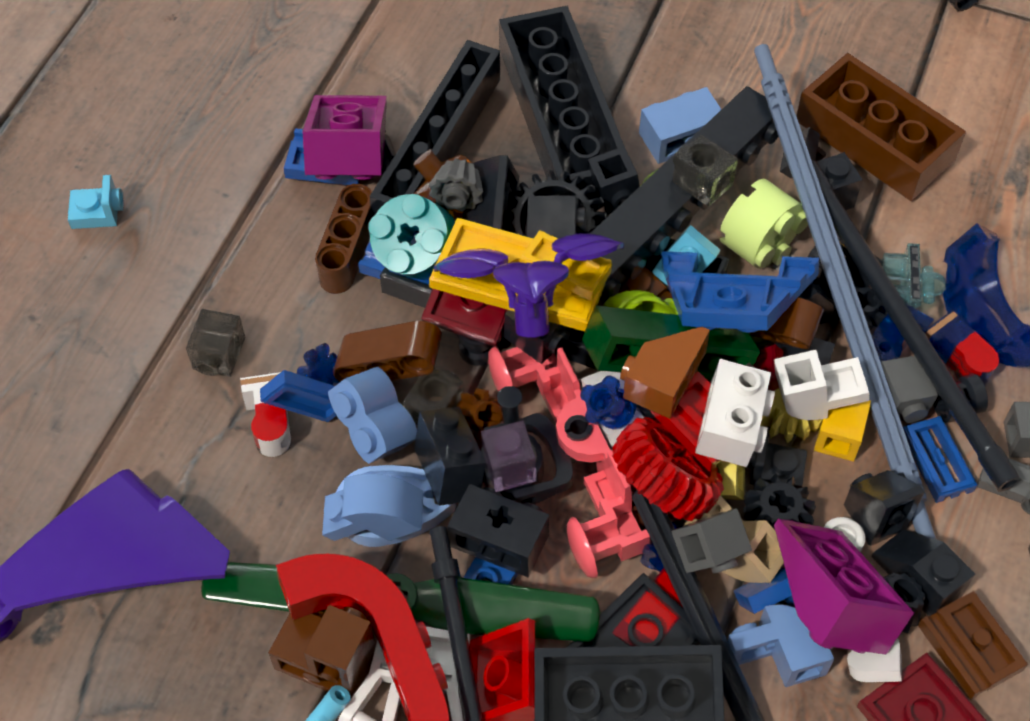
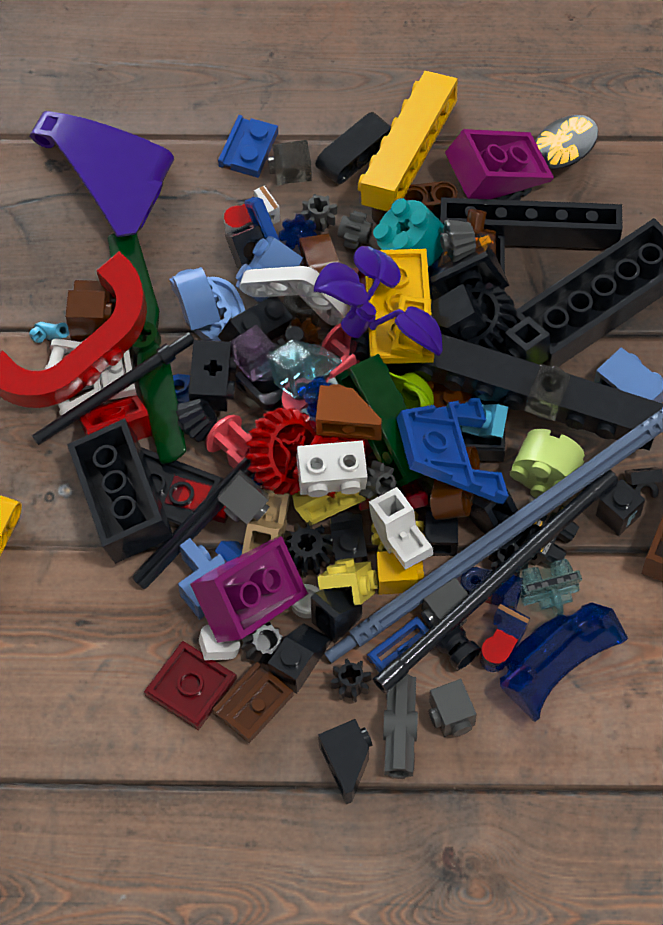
camera: 70 degrees right, 5 degrees up
(95, 206) = (373, 46): medium azure bracket -> none
(157, 386) = (248, 146): none -> blue plate
(233, 270) = (353, 148): none -> black beam
(269, 205) = (408, 141): none -> yellow brick
(304, 335) = (320, 211): none -> dark grey gear
(316, 429) = (239, 238): none -> black brick
(344, 65) = (567, 140): none -> shield
(352, 307) = (355, 230): none -> dark grey gear
(445, 358) = (290, 282): none -> white beam
(555, 410) = (299, 364): none -> clear light blue slope
(558, 567) = (196, 418): none -> black piece
(848, 471) = (347, 573): none -> light yellow bracket
(973, 523) = (345, 688): none -> black gear

